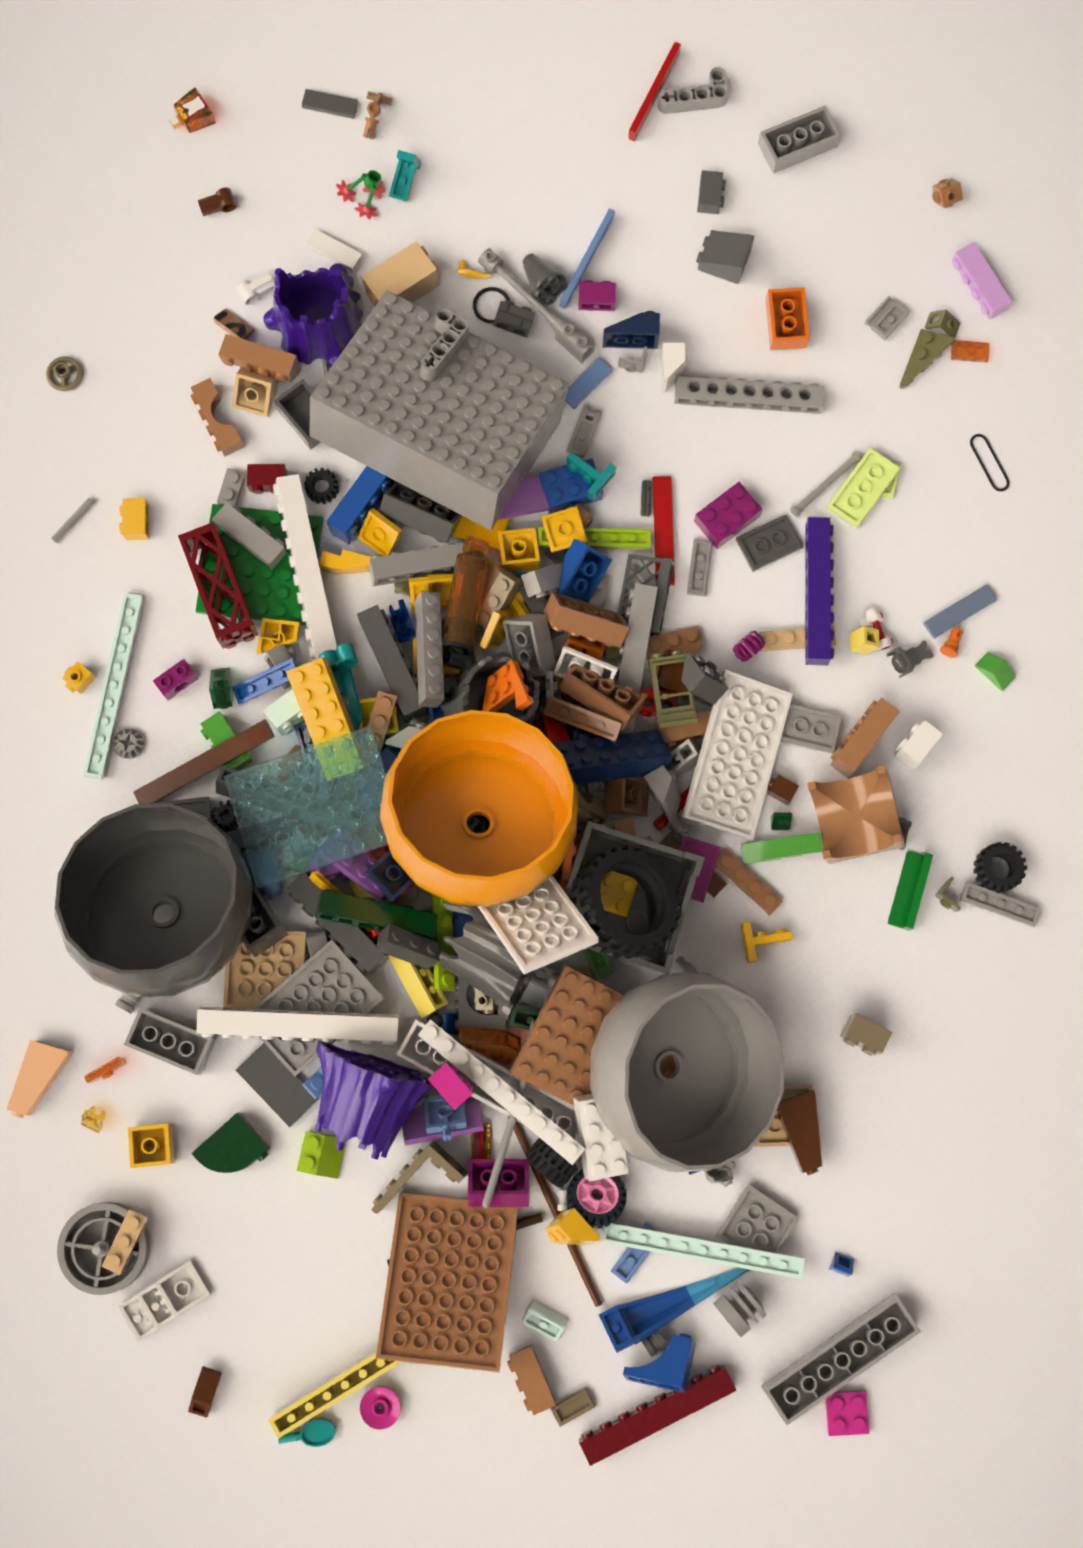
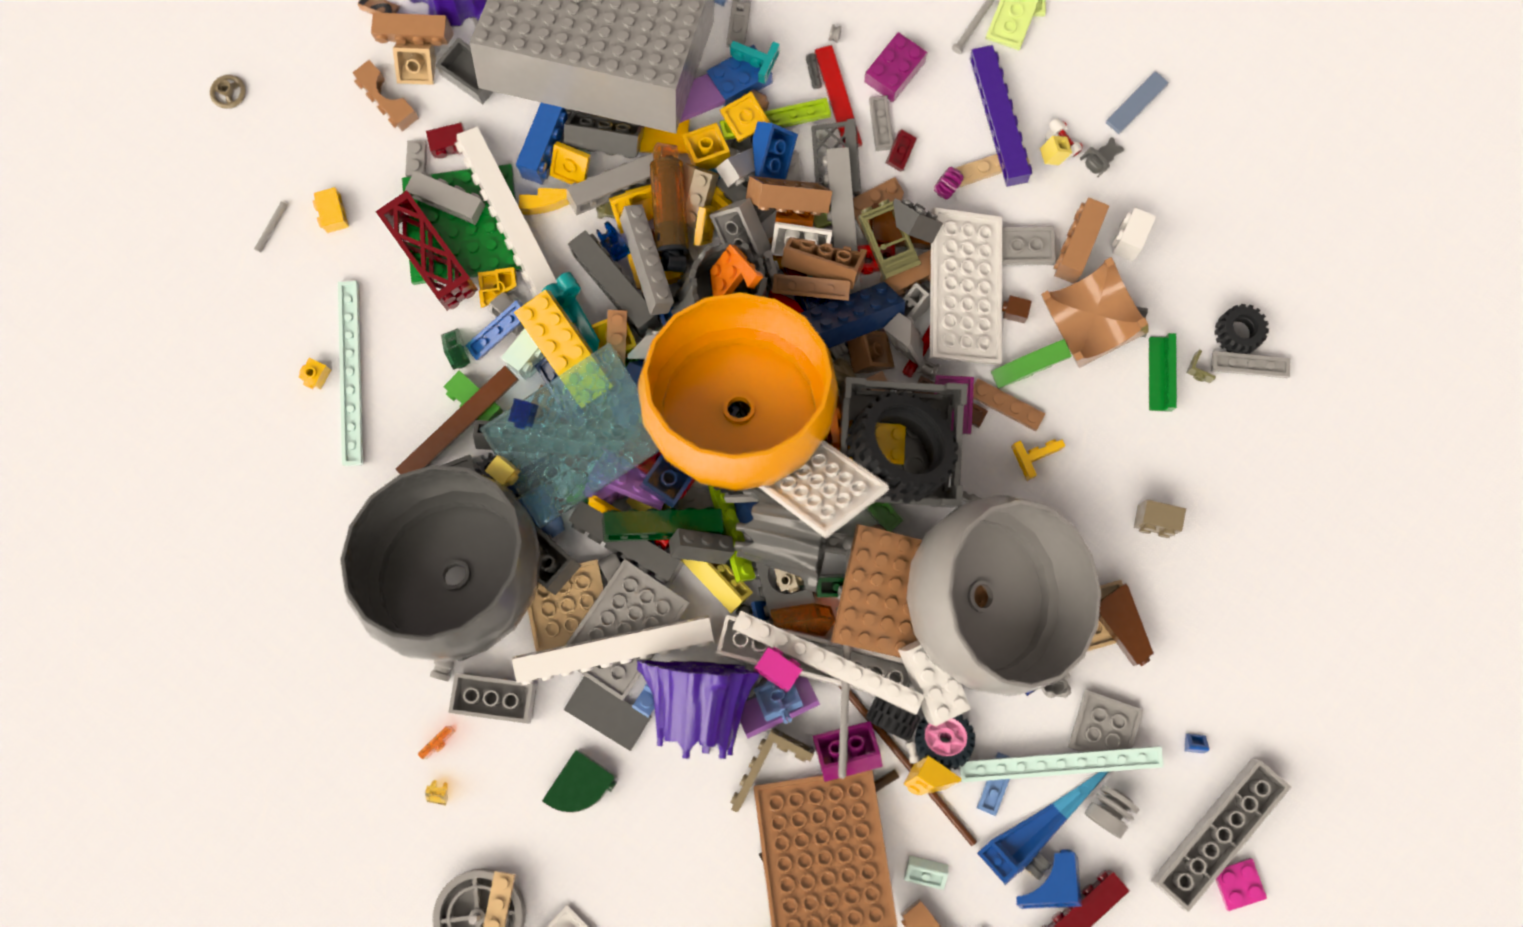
camera: 10 degrees left, 0 degrees up
(37, 1074) = (370, 765): light nougat slope -> none
(132, 750) = (384, 430): light grey gear -> none
(151, 1145) = (500, 803): yellow brick -> none
(175, 679) = (409, 351): magenta brick -> none
(236, 824) = (503, 471): none -> light yellow brick
(269, 773) = (522, 413): none -> clear blue brick
(320, 1156) = (667, 770): lime slope -> none
(321, 496) = (500, 125): black tyre -> none
(481, 1143) = (820, 718): slope -> none
(677, 465) = (835, 33): none -> light grey bush
(711, 600) = (901, 150): none -> dark red plate
(769, 543) = (940, 84): dark grey tile -> none
(781, 821) = (1023, 339): dark green slope -> none
(951, 646) = (1138, 136): orange pin -> none
(996, 670) = (1185, 148): bright green slope -> none

